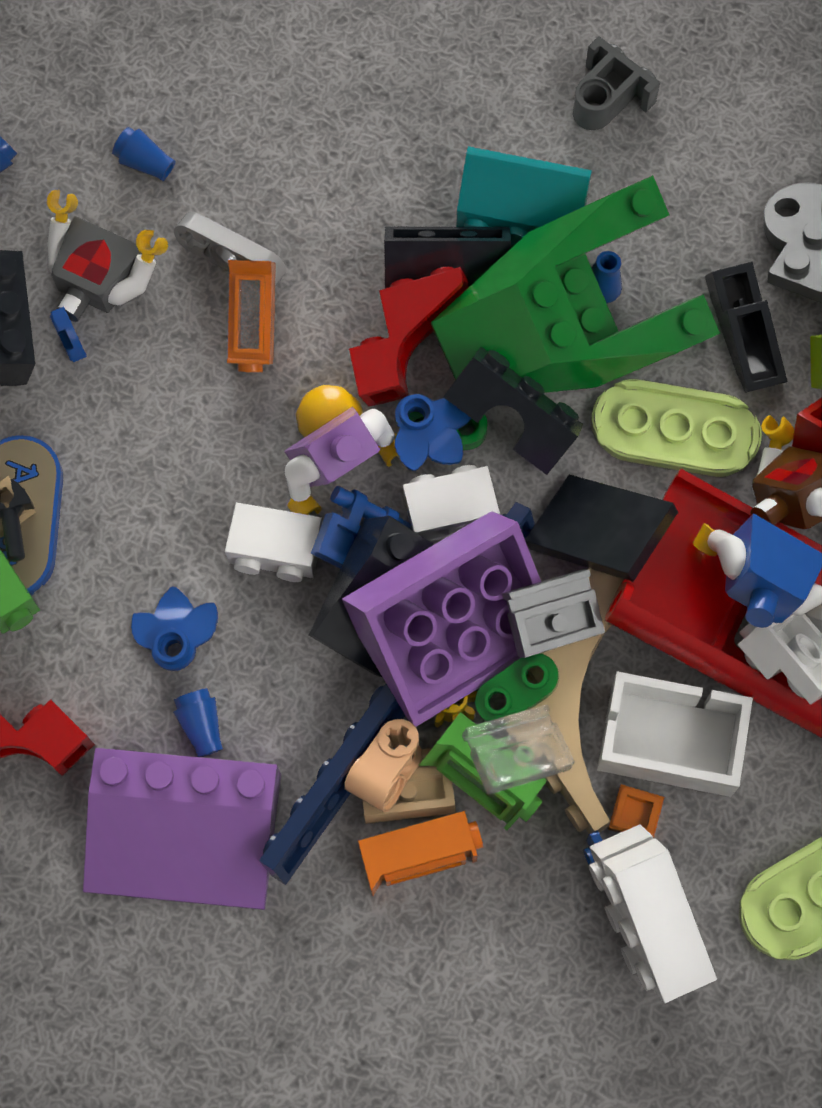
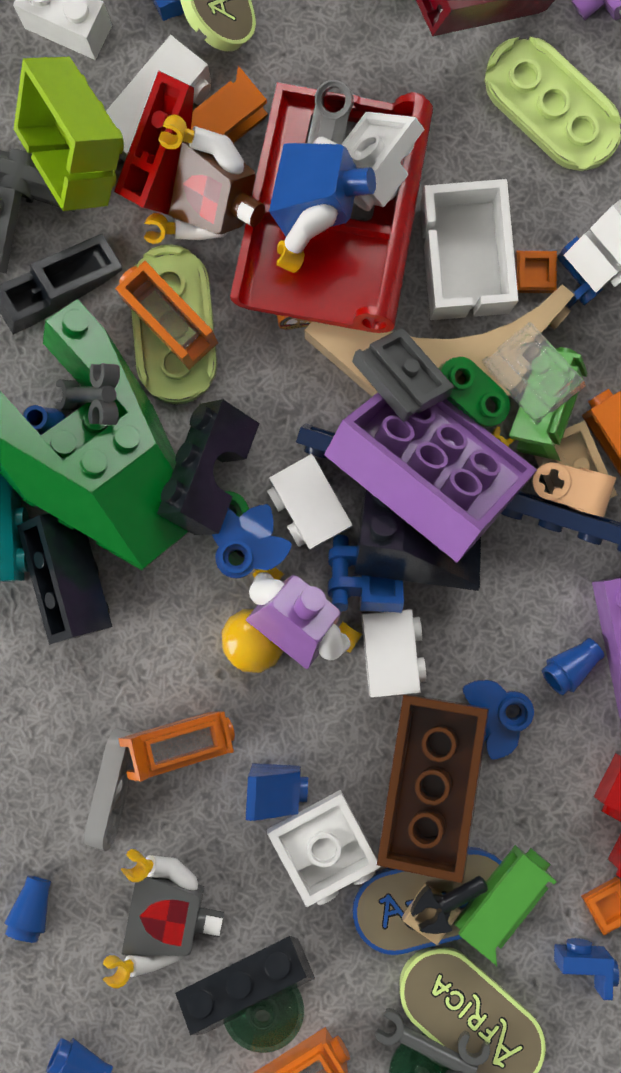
camera: 110 degrees left, 15 degrees up
(67, 334) = (235, 921): blue tile -> none
(103, 423) = (324, 849): none -> white plate
(128, 538) = (433, 787): none -> reddish brown brick
(176, 388) = (274, 791): none -> blue slope
(408, 310) = (136, 594): red arch -> none
(601, 527) = (299, 358): black tile -> none
(625, 320) = (100, 395): none -> dark grey bar
(682, 412) = (166, 314): none -> orange window

